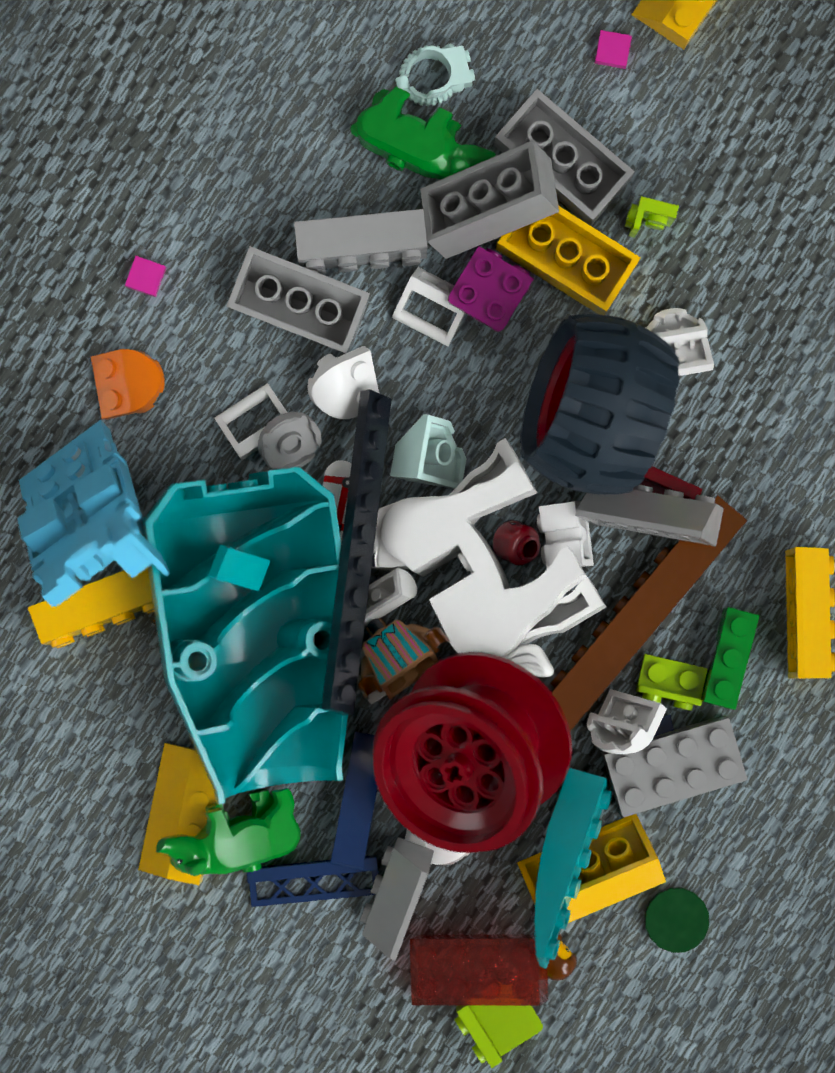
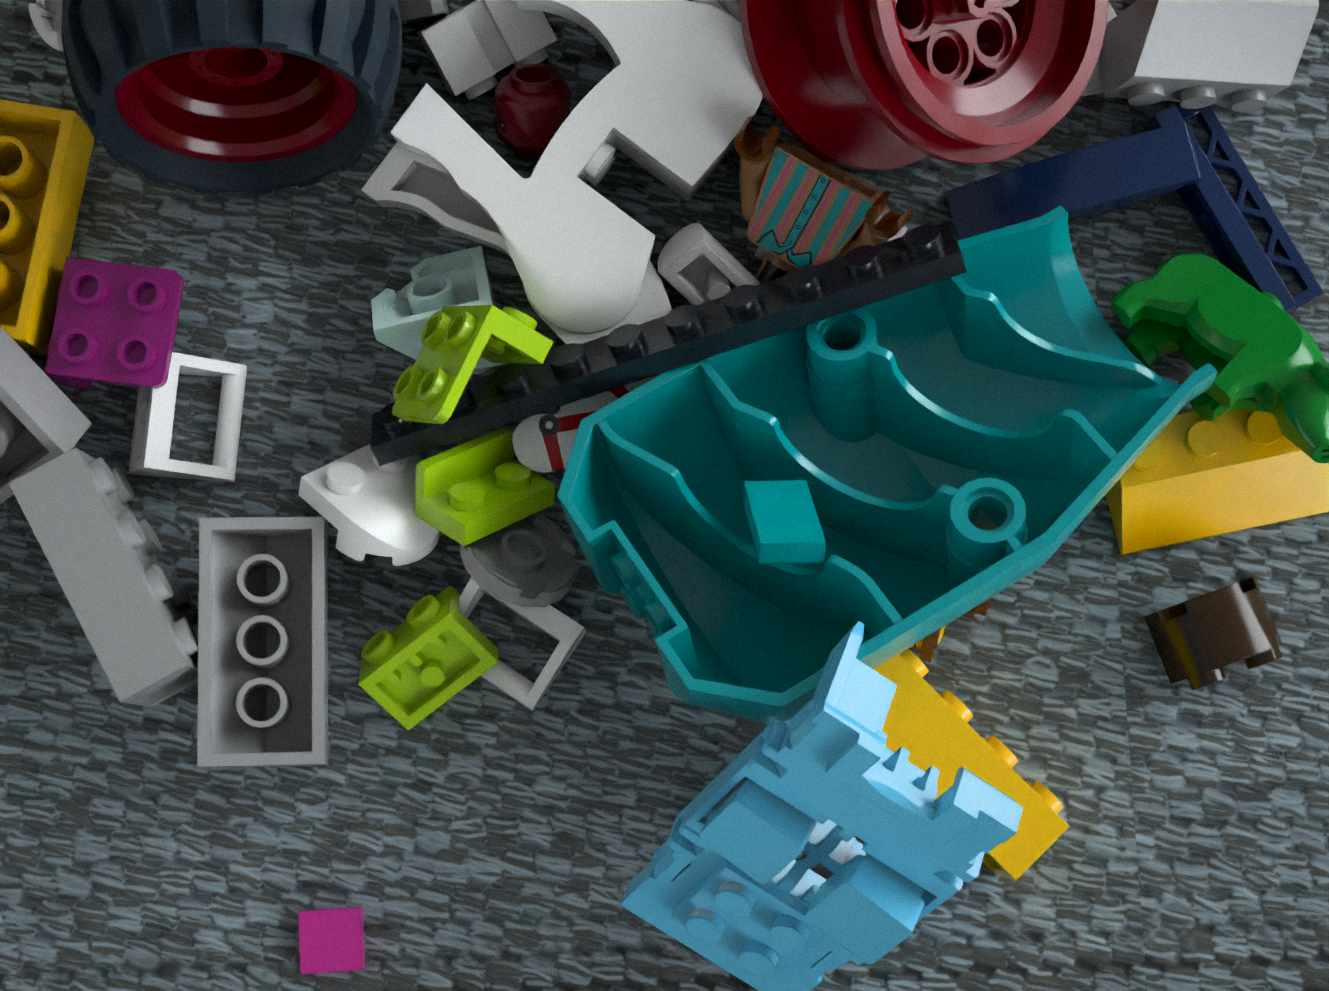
camera: 105 degrees left, 5 degrees down
(105, 770) = (1215, 632): none -> dark brown cylinder
(126, 382) = (533, 890): orange slope -> none
(259, 375) = (425, 659): none -> lime bracket
(328, 434) = (478, 488): none -> lime bracket
(391, 445) = (451, 350): none -> lime bracket

